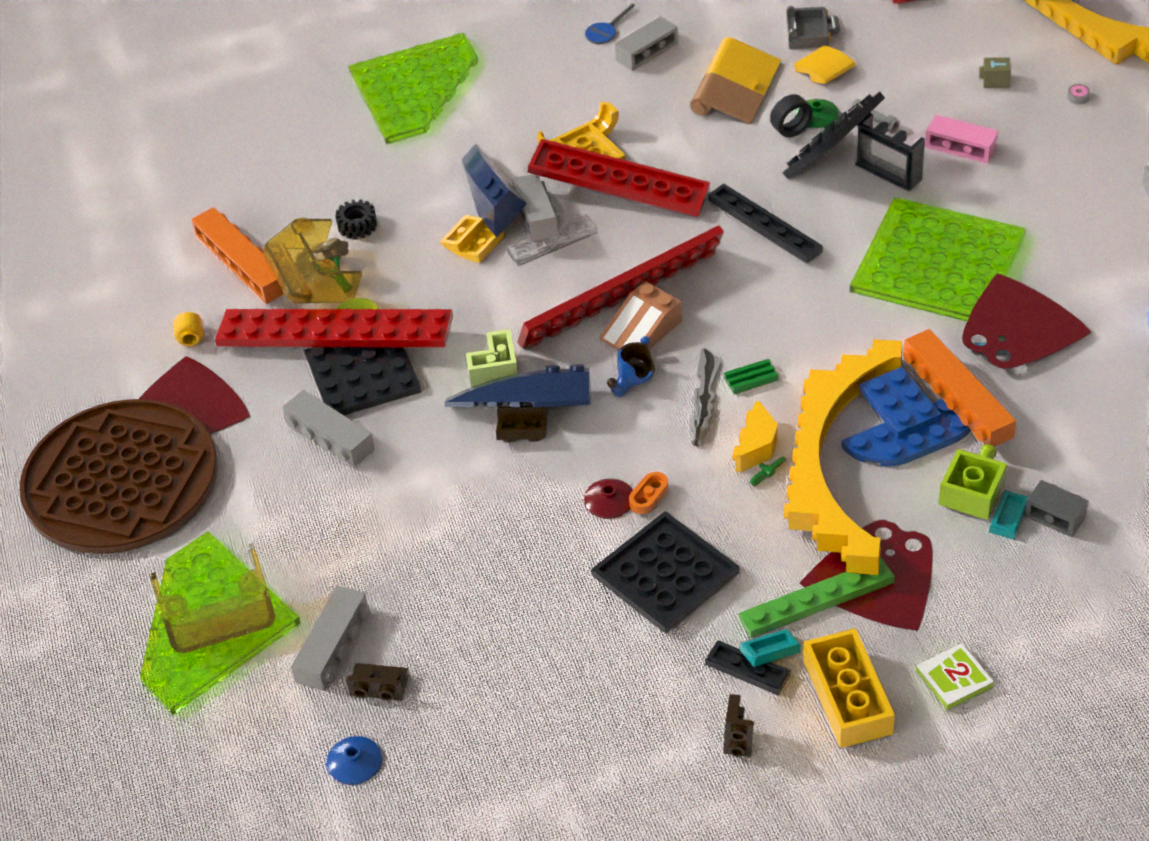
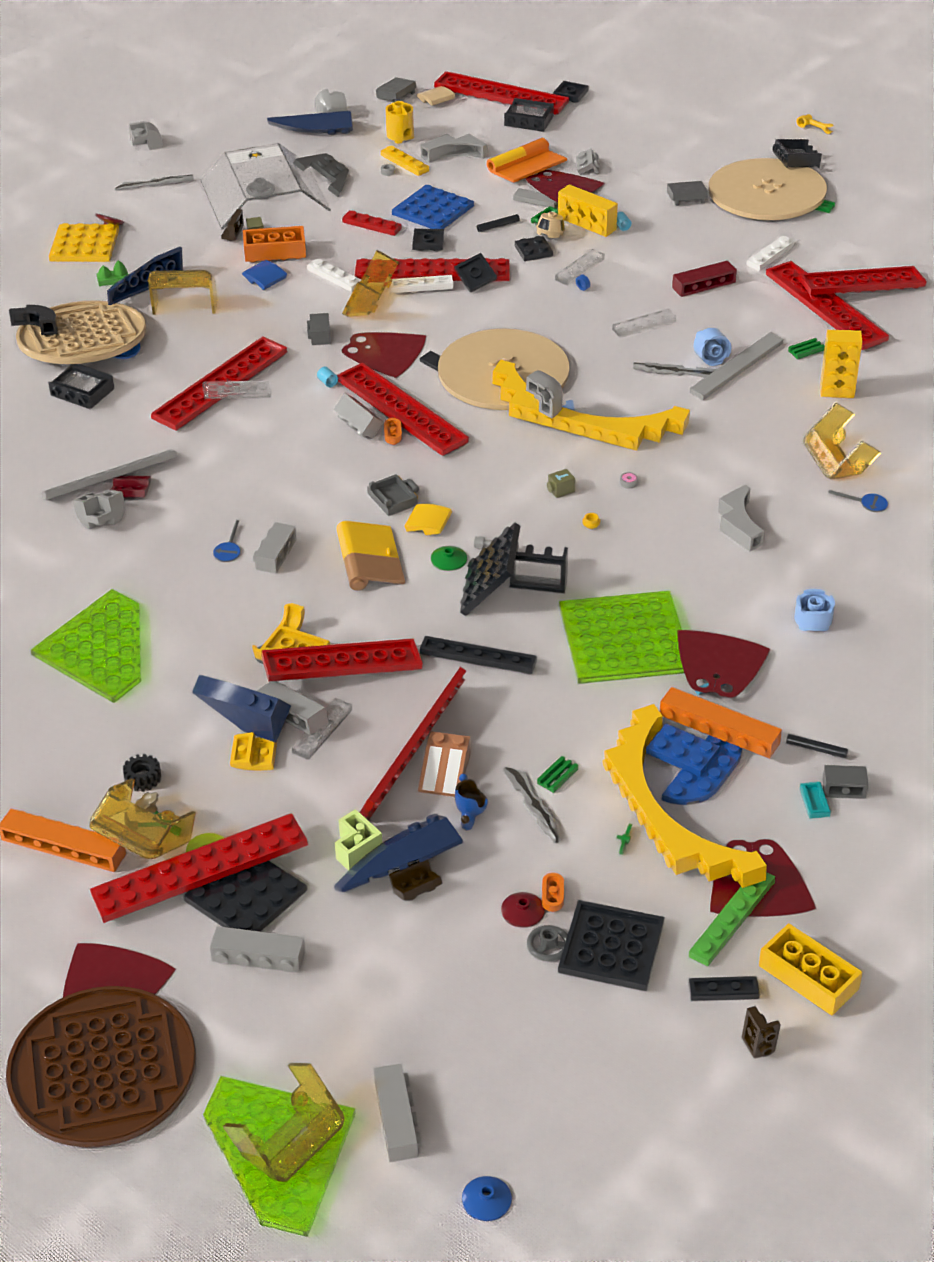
camera: 35 degrees left, 5 degrees down
(188, 328) = (67, 918): yellow head -> none
(378, 681) = (459, 1129): dark brown bracket -> none
(605, 539) = (549, 940): none -> dark grey piece
(757, 439) = (601, 816): yellow slope -> none
(770, 647) = (731, 966): teal tile -> none
(798, 123) = (439, 565): black tyre -> none
(954, 676) = (867, 929): tile -> none
(961, 139) = (577, 539): bright pink brick -> none
(973, 482) = (779, 786): lime brick -> none
(999, 122) = (591, 520): none -> yellow plate
(1059, 458) = (817, 746): none -> black piece

